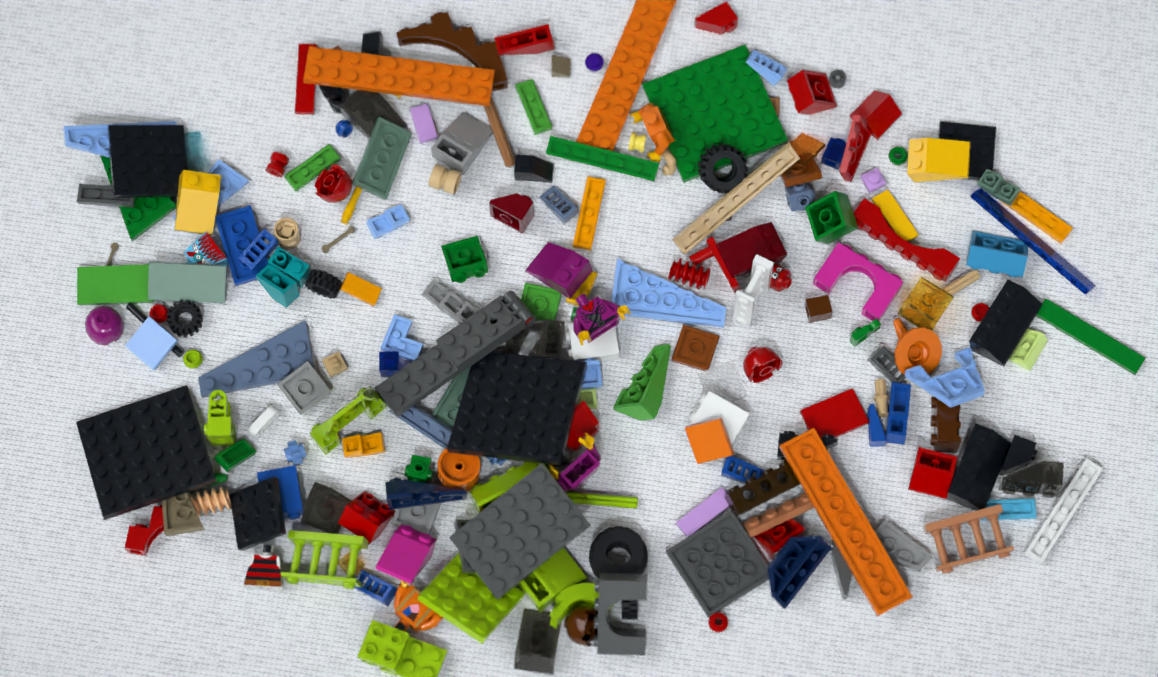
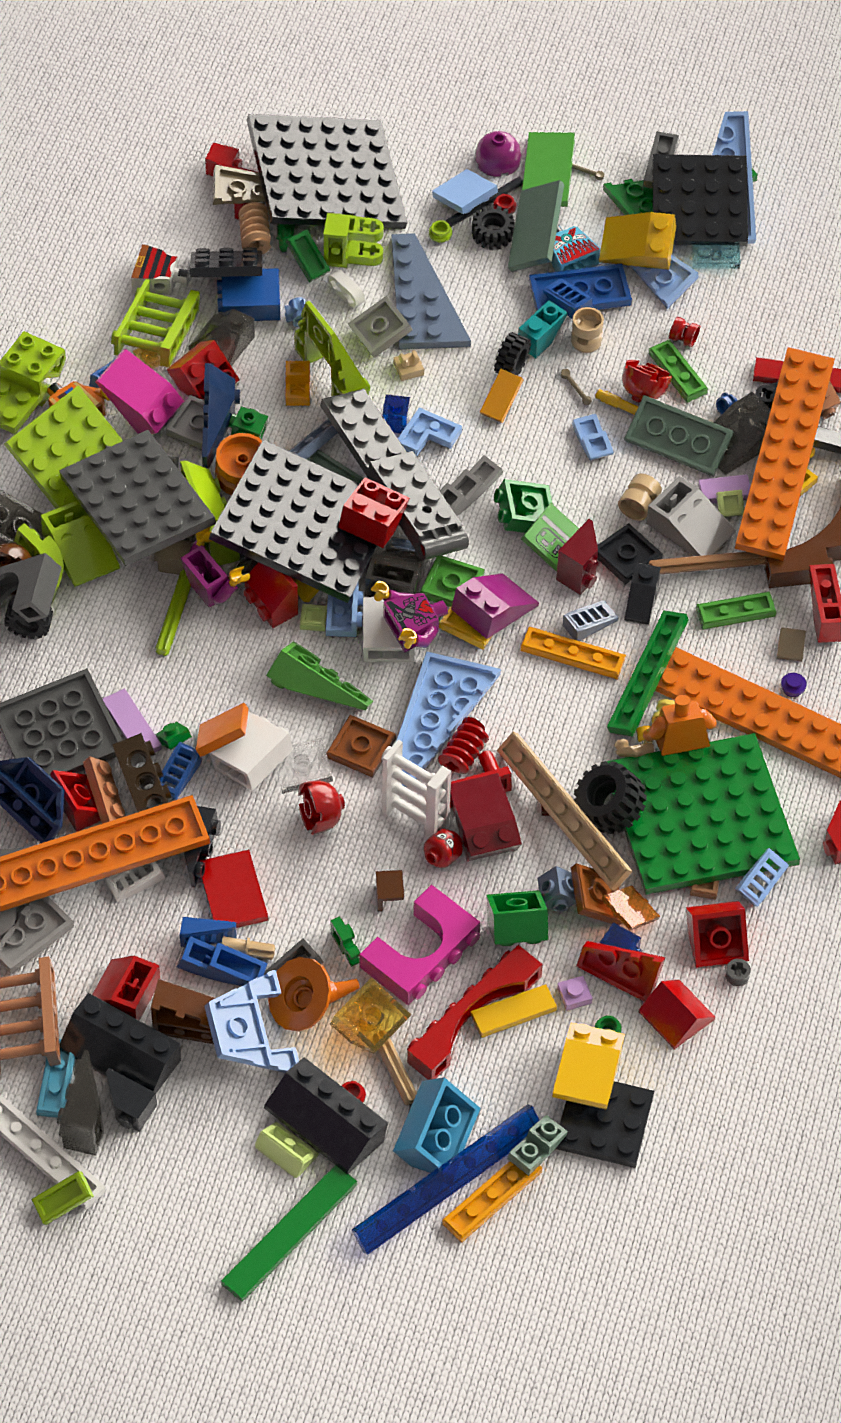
camera: 95 degrees right, 15 degrees down
(278, 285) = (516, 312): teal slope -> none
(438, 117) = (730, 503): none -> yellowish green tile
(492, 184) = (623, 550): none -> black tile
(492, 235) = (549, 534): none -> bright green tile
(508, 354) = (373, 512): none -> red slope
(618, 538) = (91, 634): black tyre -> none
(712, 479) = (173, 734): none -> green plate
(1101, 484) = (62, 1197): none -> lime tile

